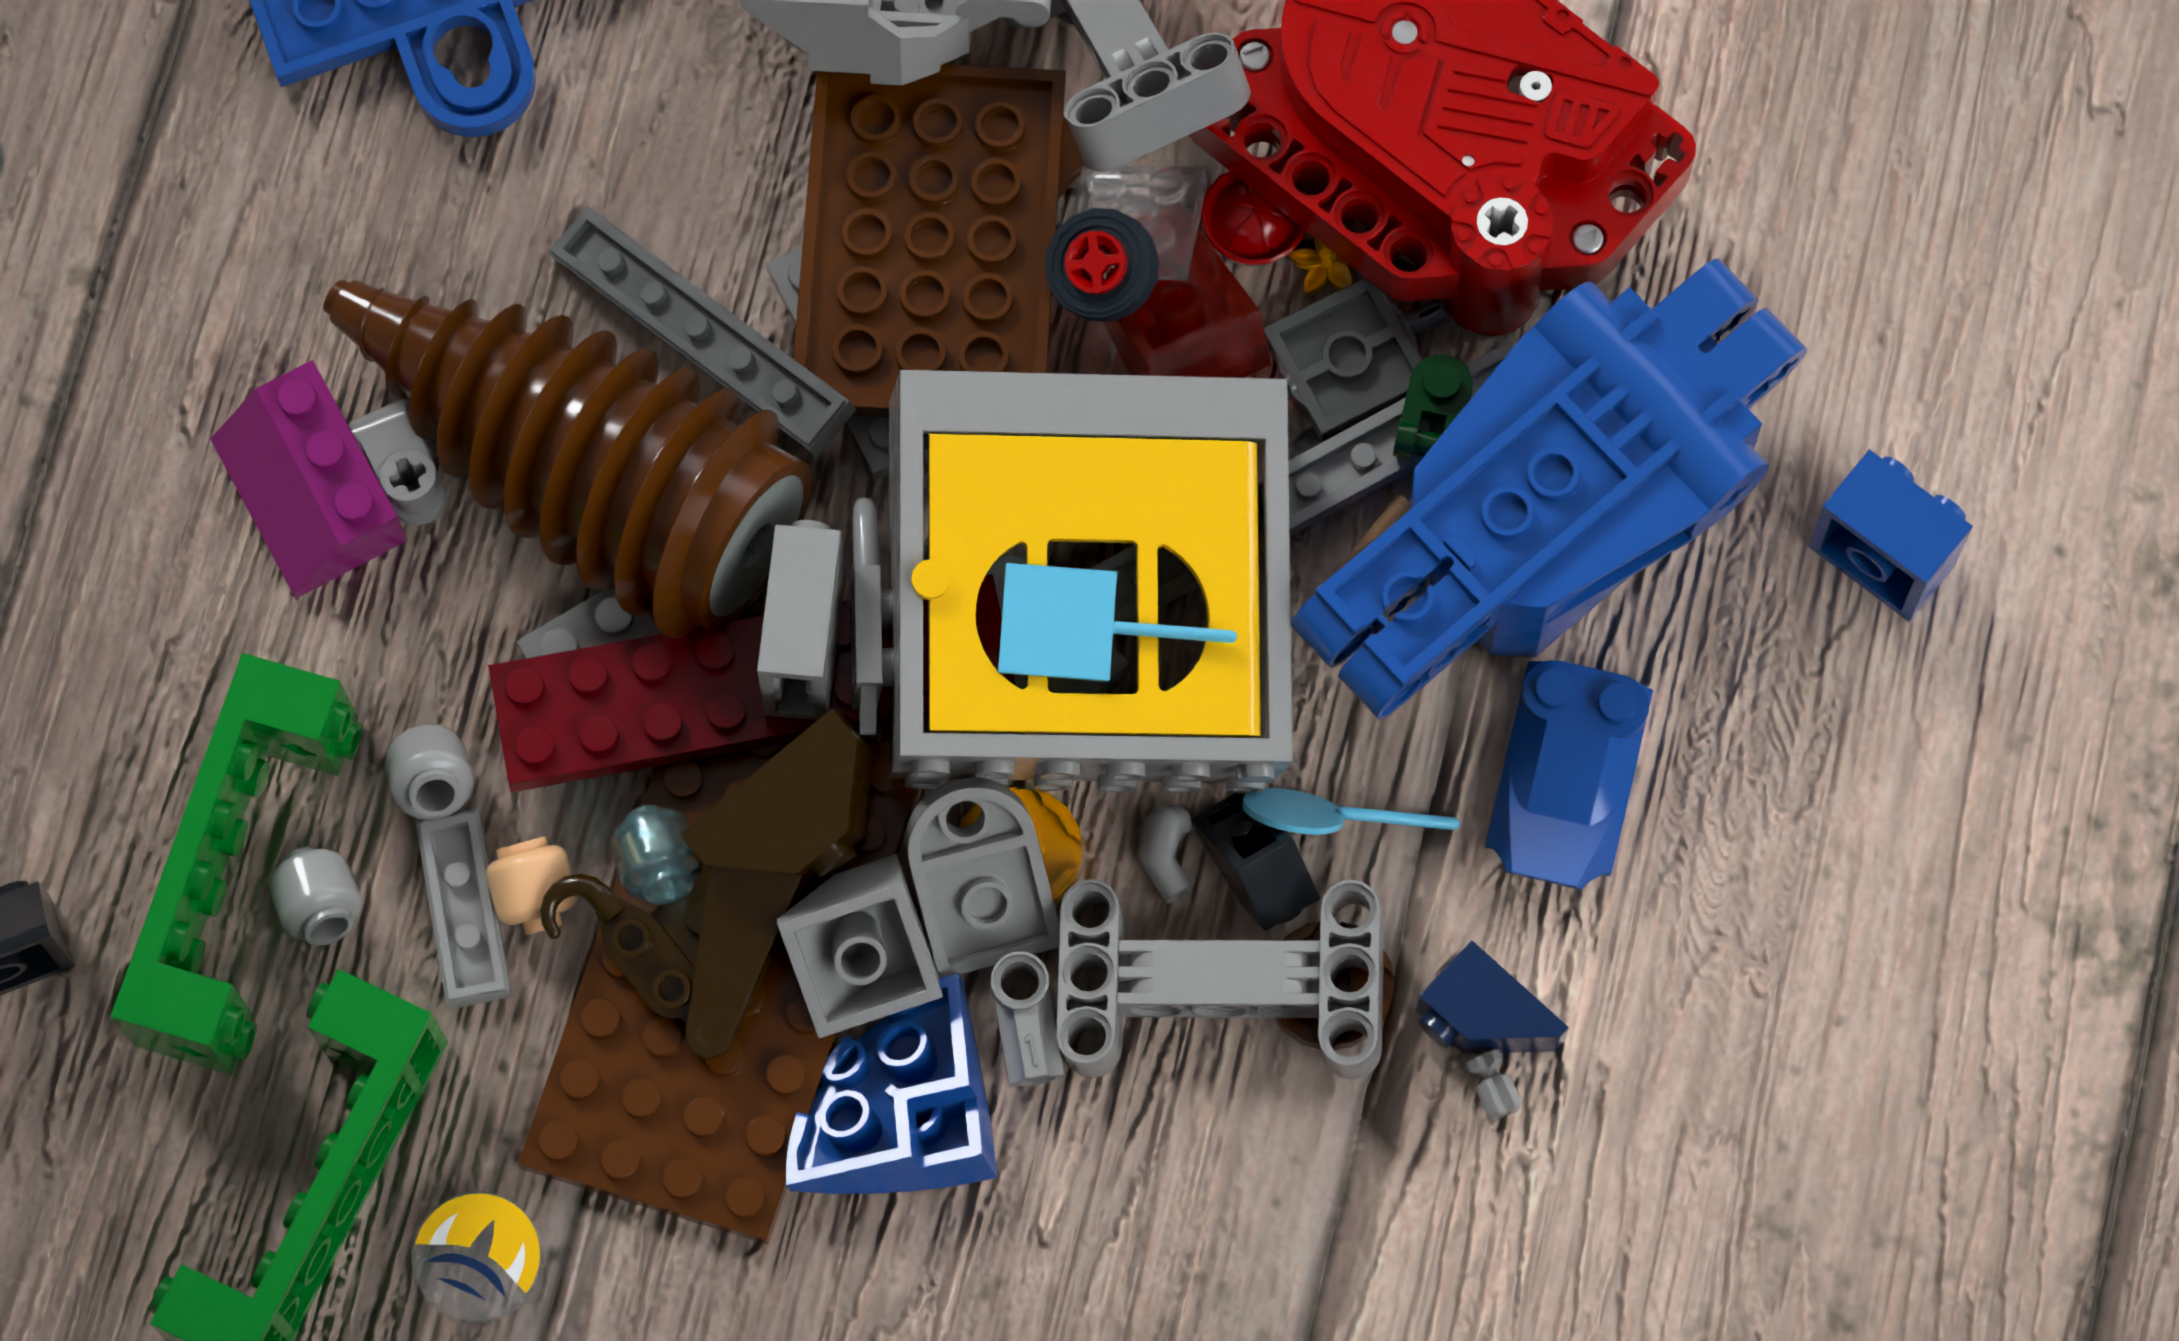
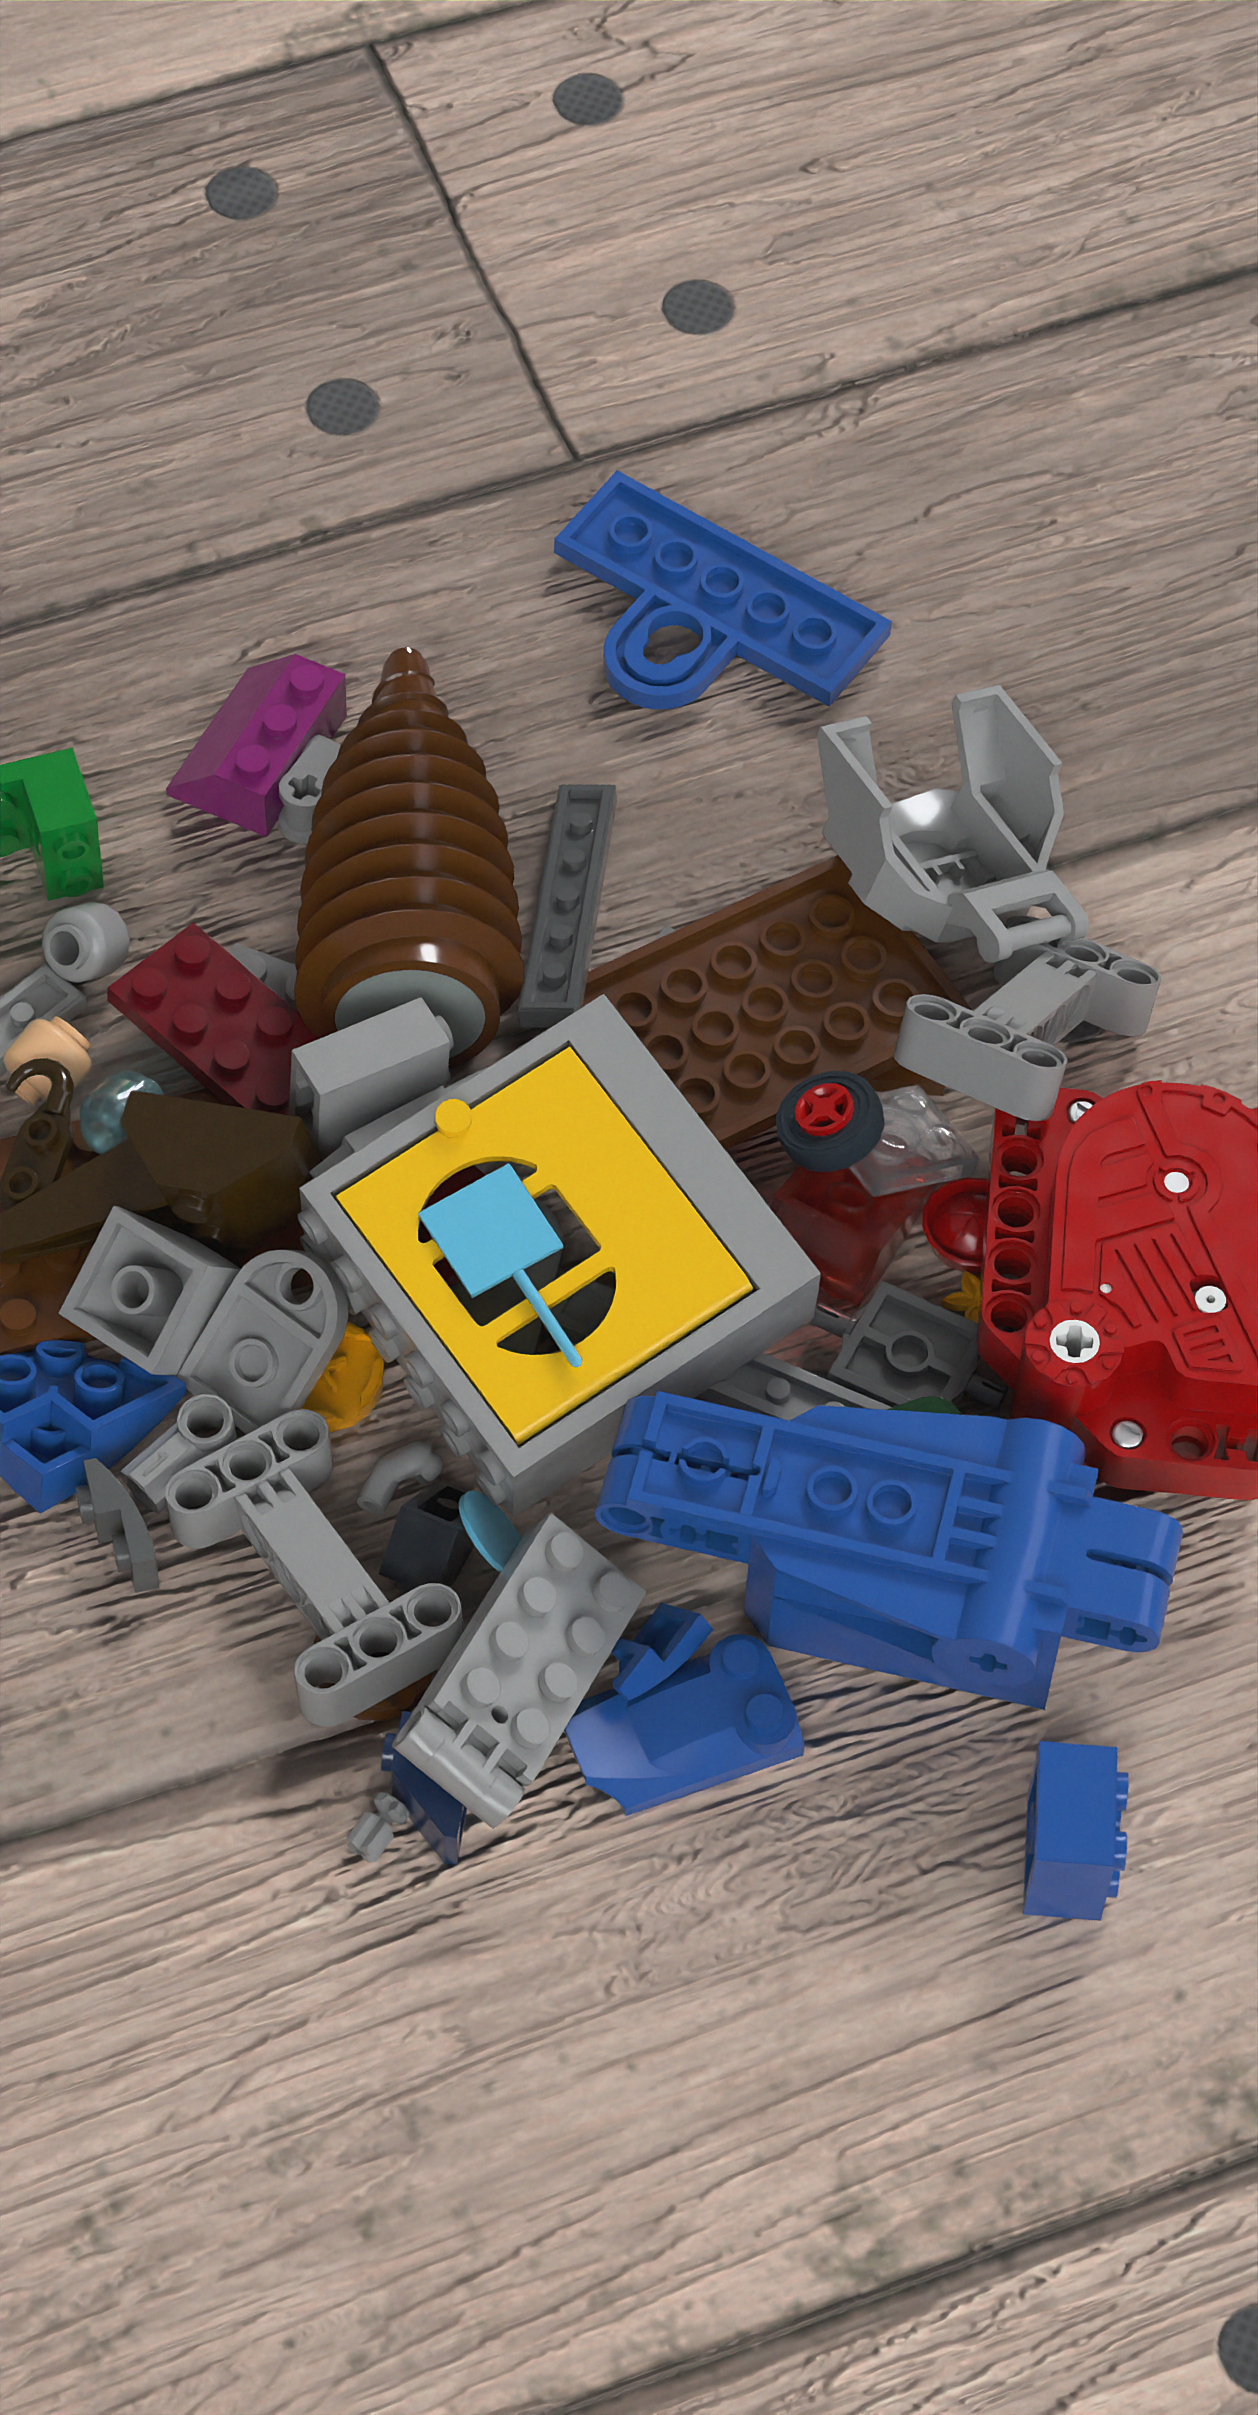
camera: 50 degrees right, 15 degrees down
(1038, 1116) = (118, 1521): none -> dark grey slope
(1452, 874) = (519, 1670): none -> light grey hinge
(1489, 749) = (658, 1649): none -> blue slope

